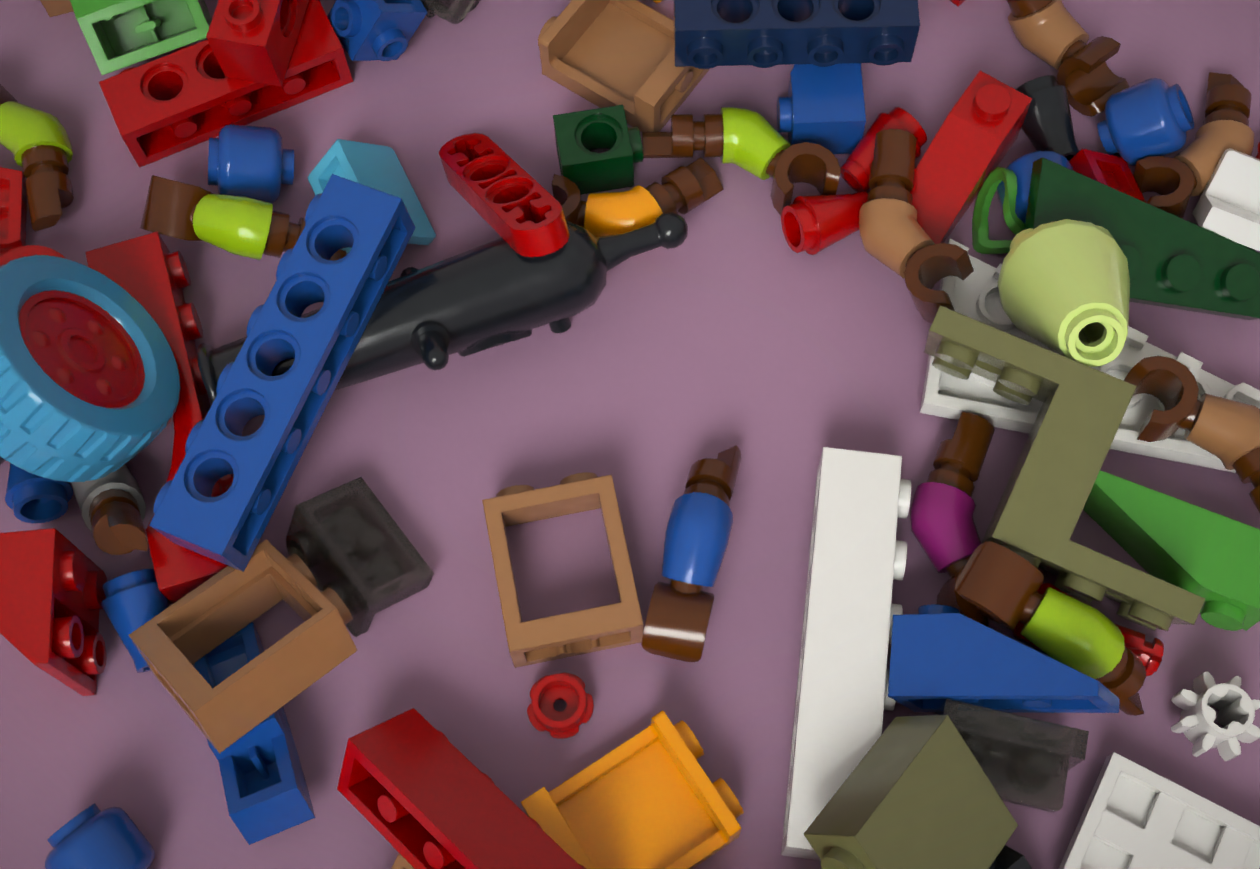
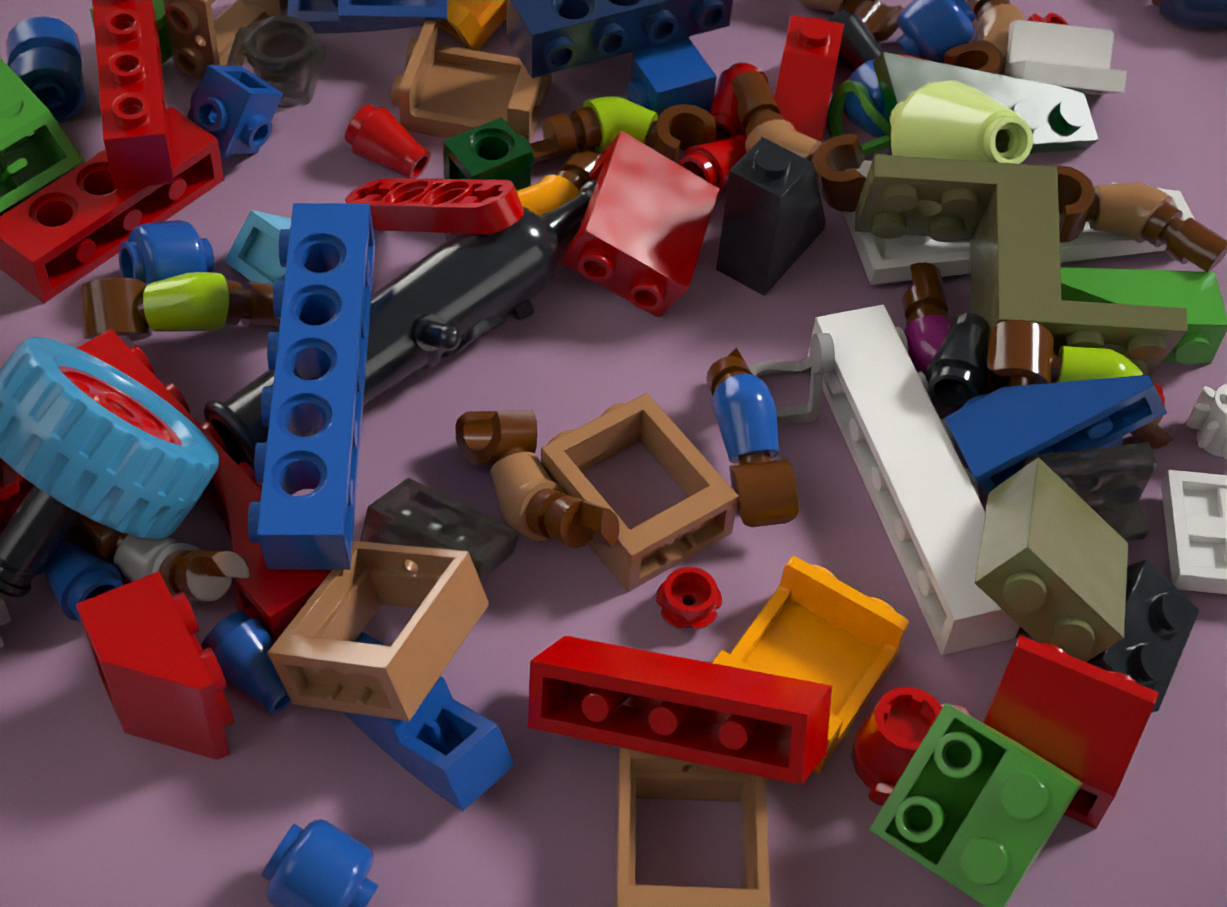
camera: 30 degrees left, 15 degrees down
(458, 527) = (522, 485): none -> reddish brown piece
(510, 88) = (383, 140): none -> red cone
(703, 276) = (642, 225): none -> panel
(772, 534) = (819, 362): none -> light grey piece
(833, 311) = (768, 215): none -> black slope
(938, 557) = (960, 362): none -> black cone

